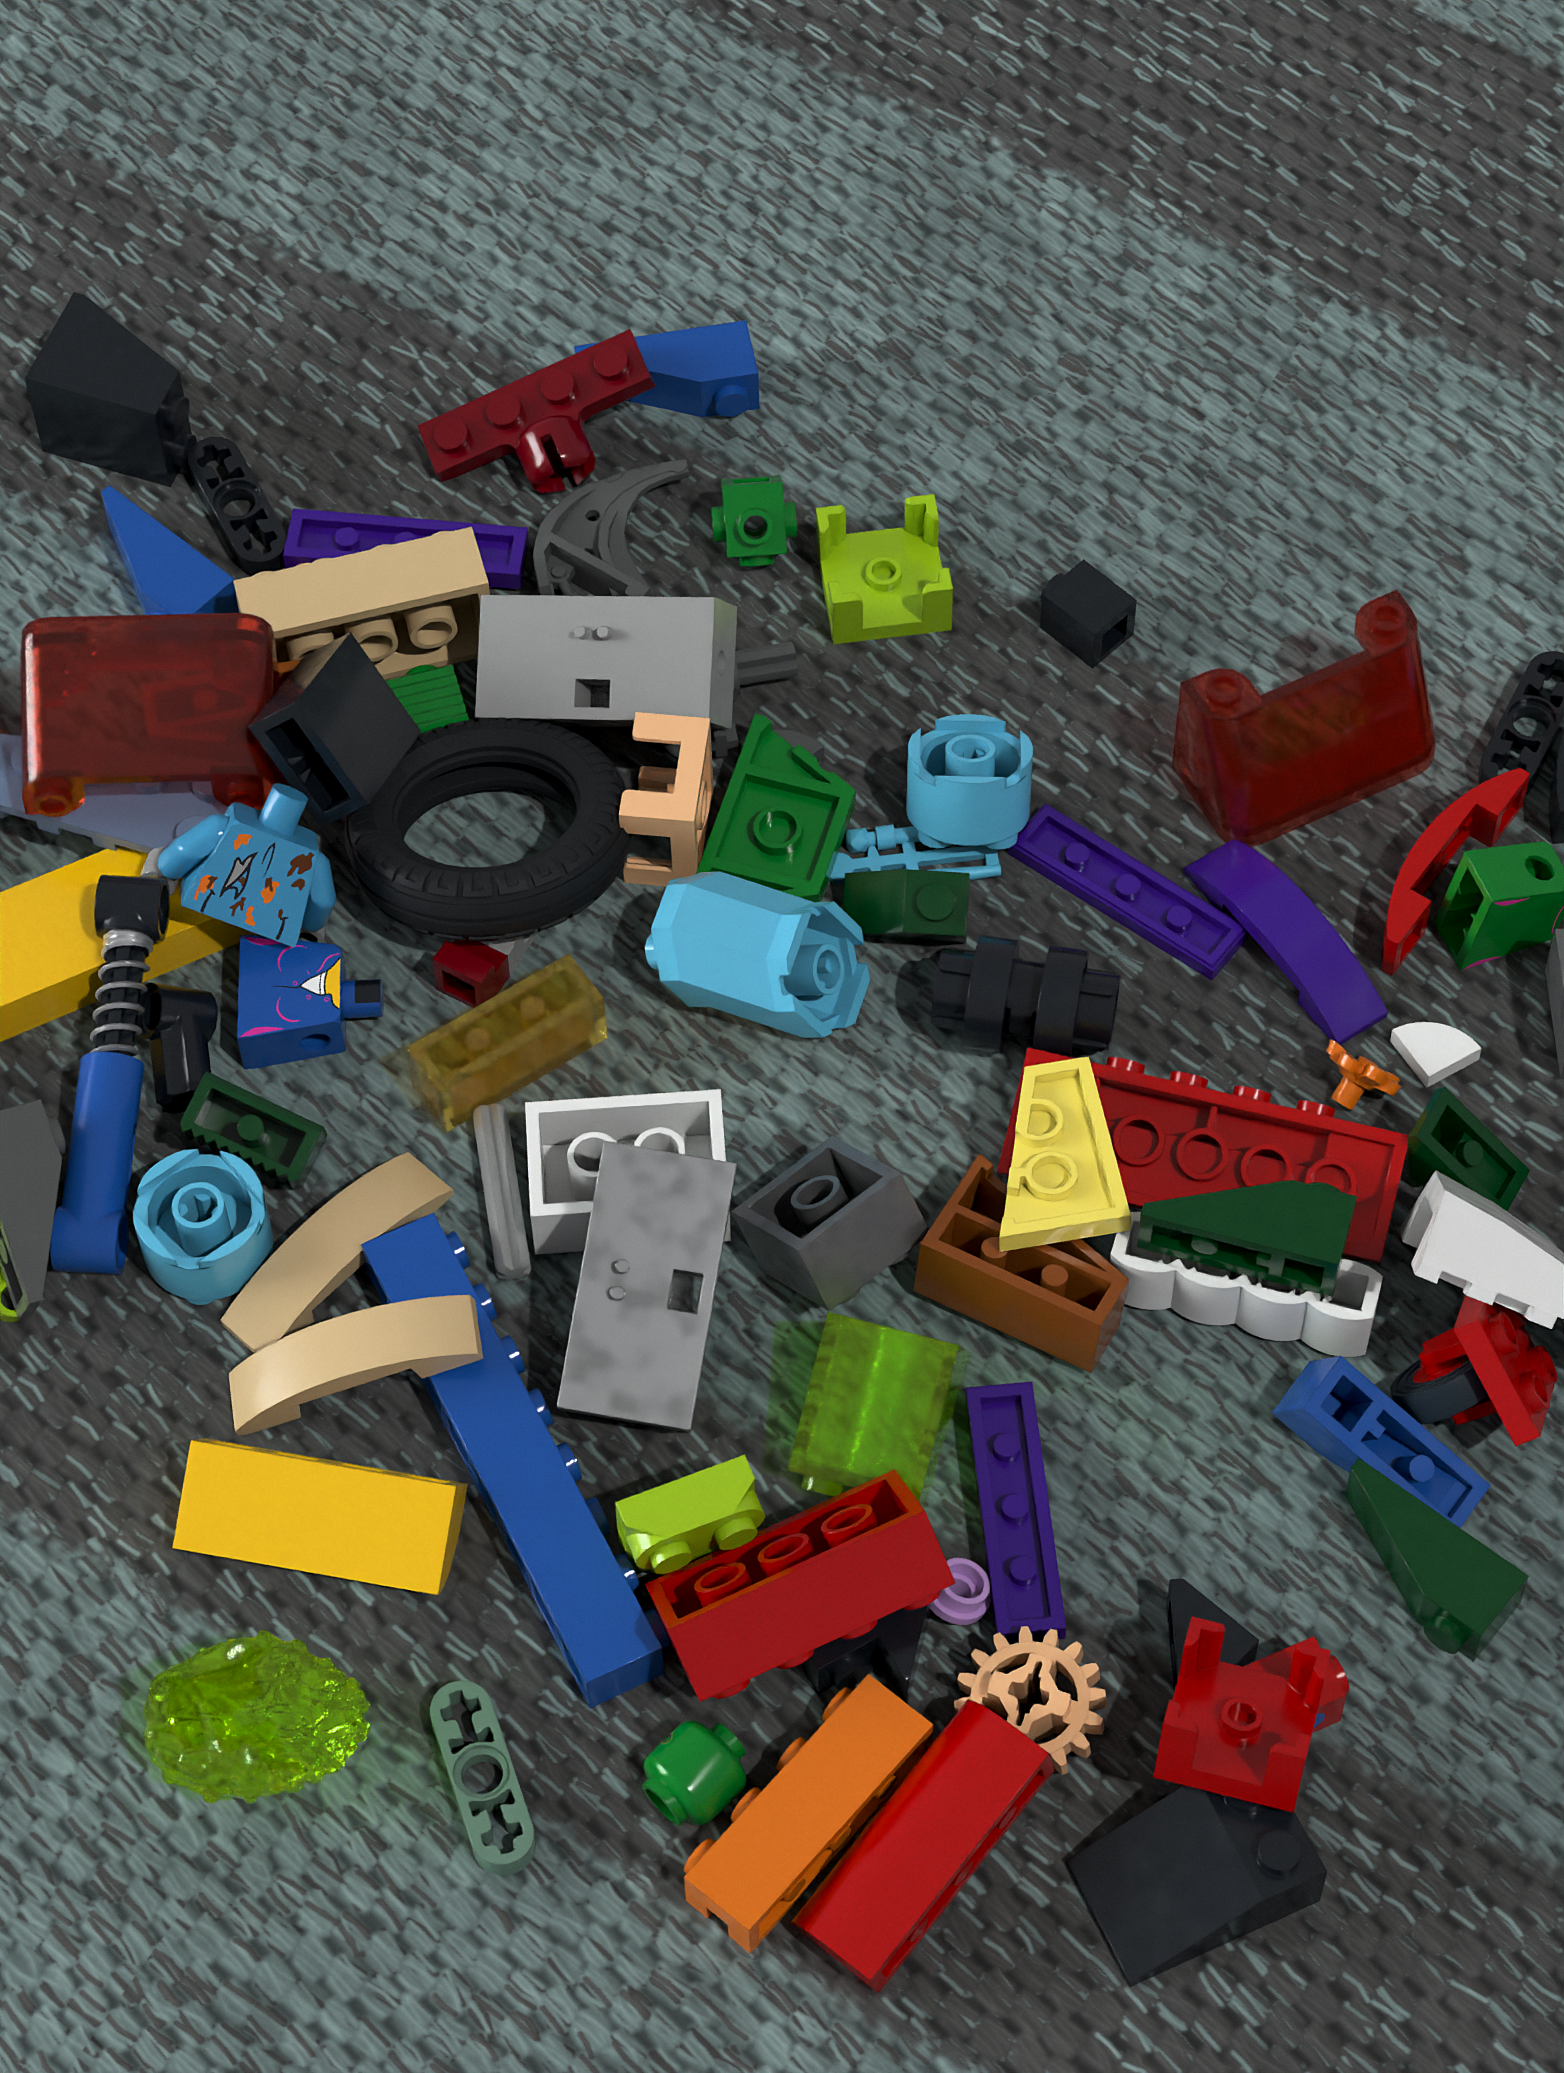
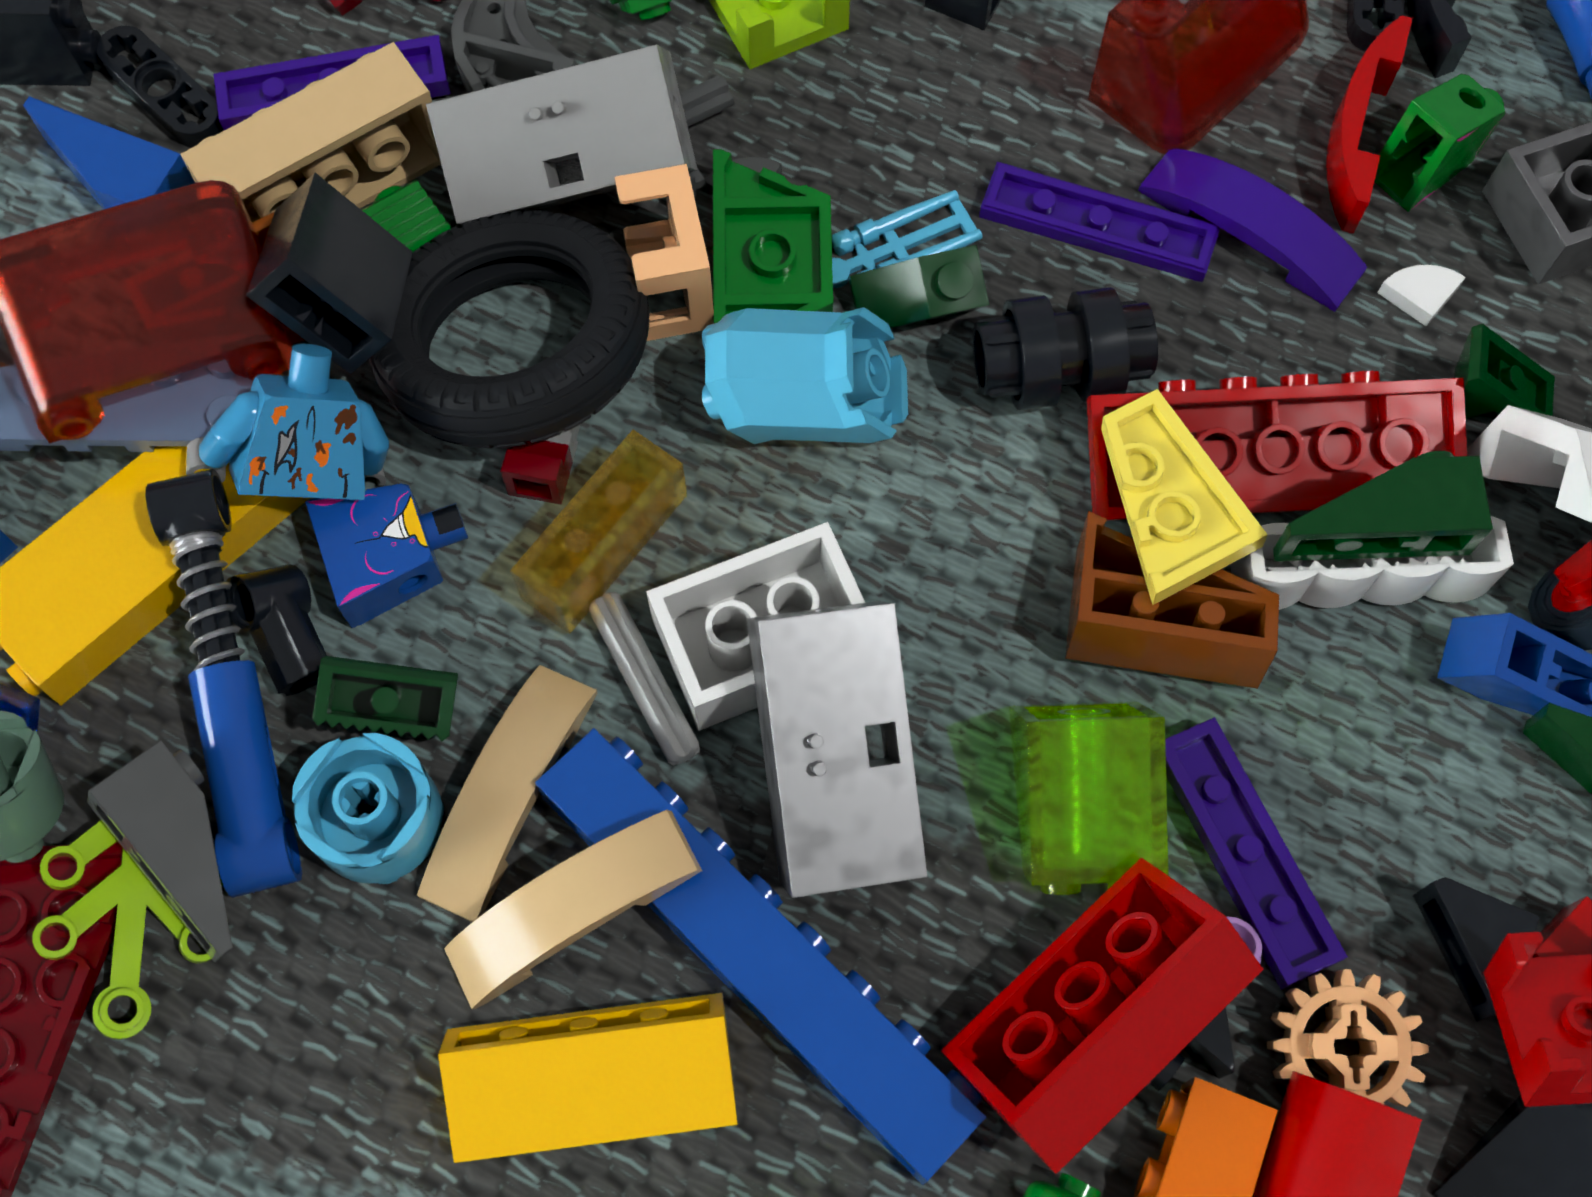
camera: 20 degrees left, 10 degrees up
(690, 1517) = (951, 992): lime slope -> none
(831, 1223) = (981, 620): flat silver brick -> none
(969, 783) = (933, 160): medium azure brick -> none
(1358, 1076) = (1373, 334): orange plant -> none

